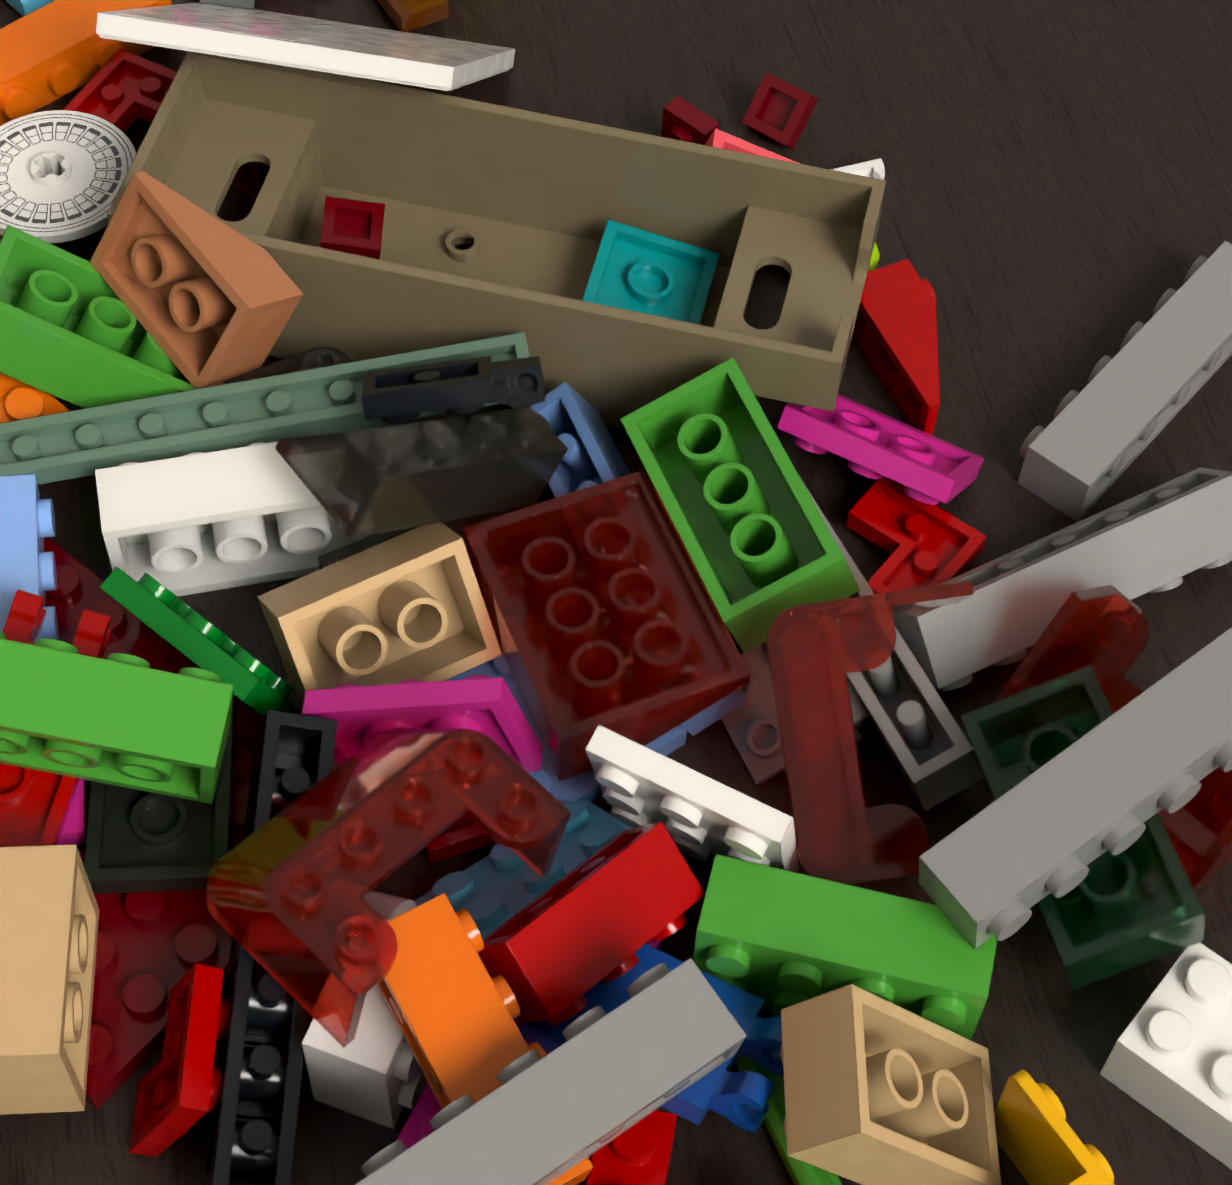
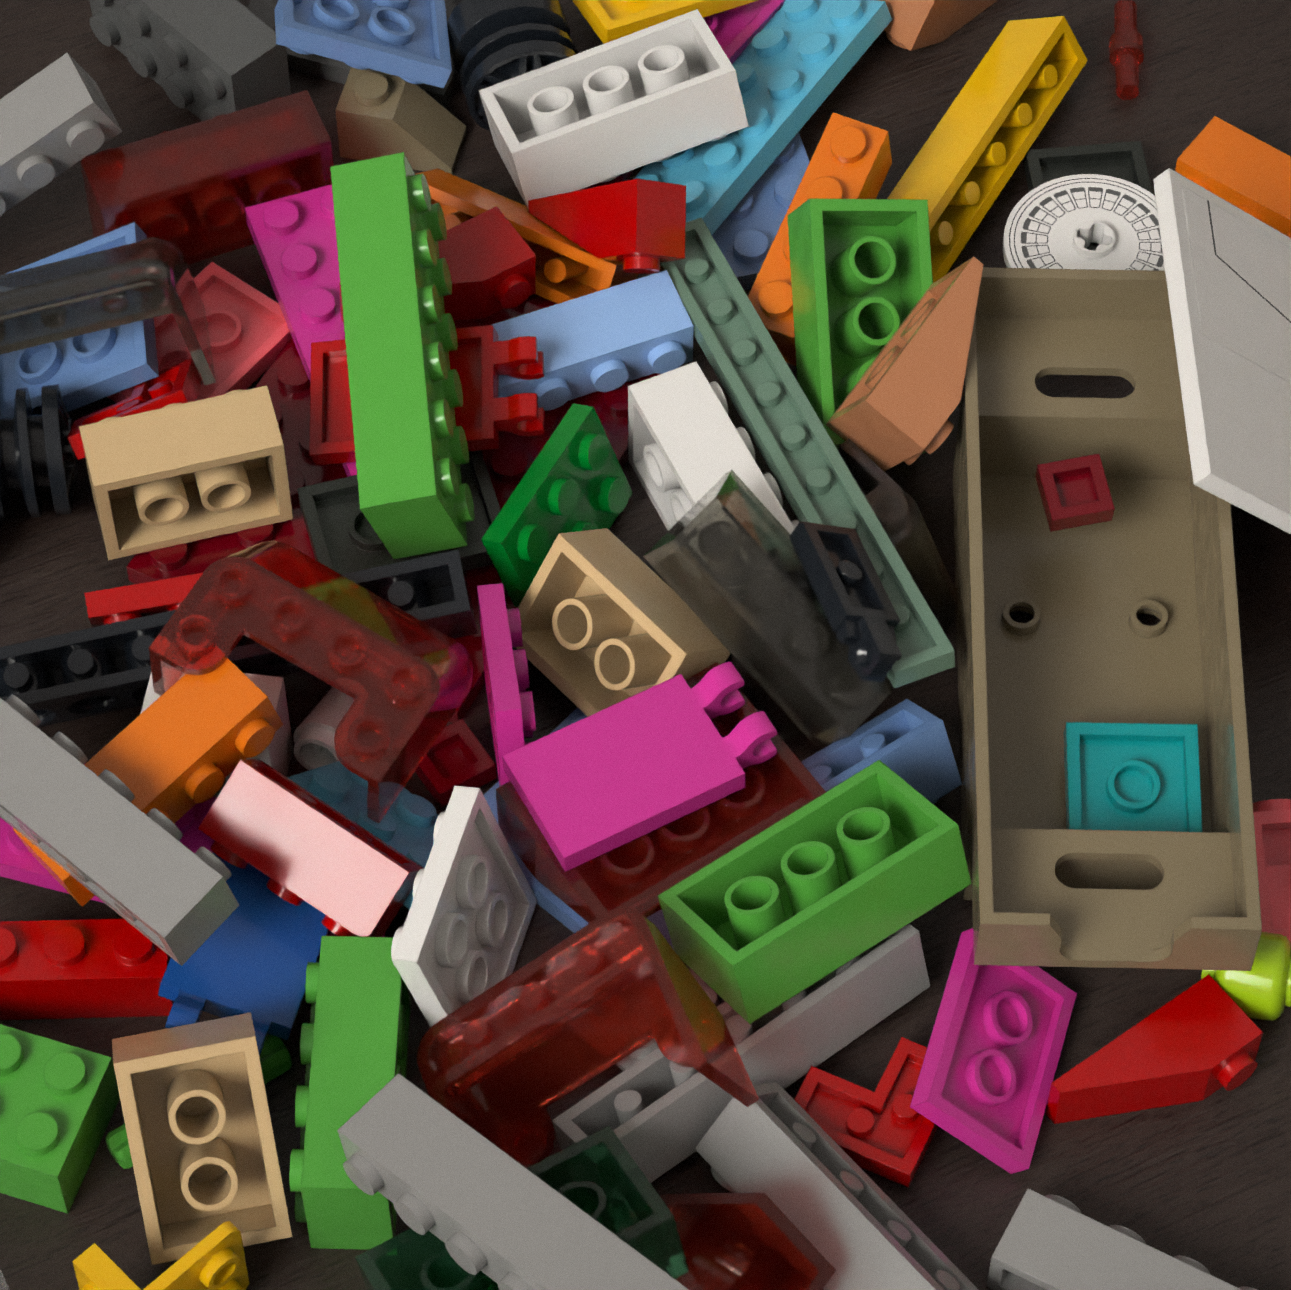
camera: 80 degrees right, 0 degrees up
(576, 611) = (638, 764): none -> dark pink tile

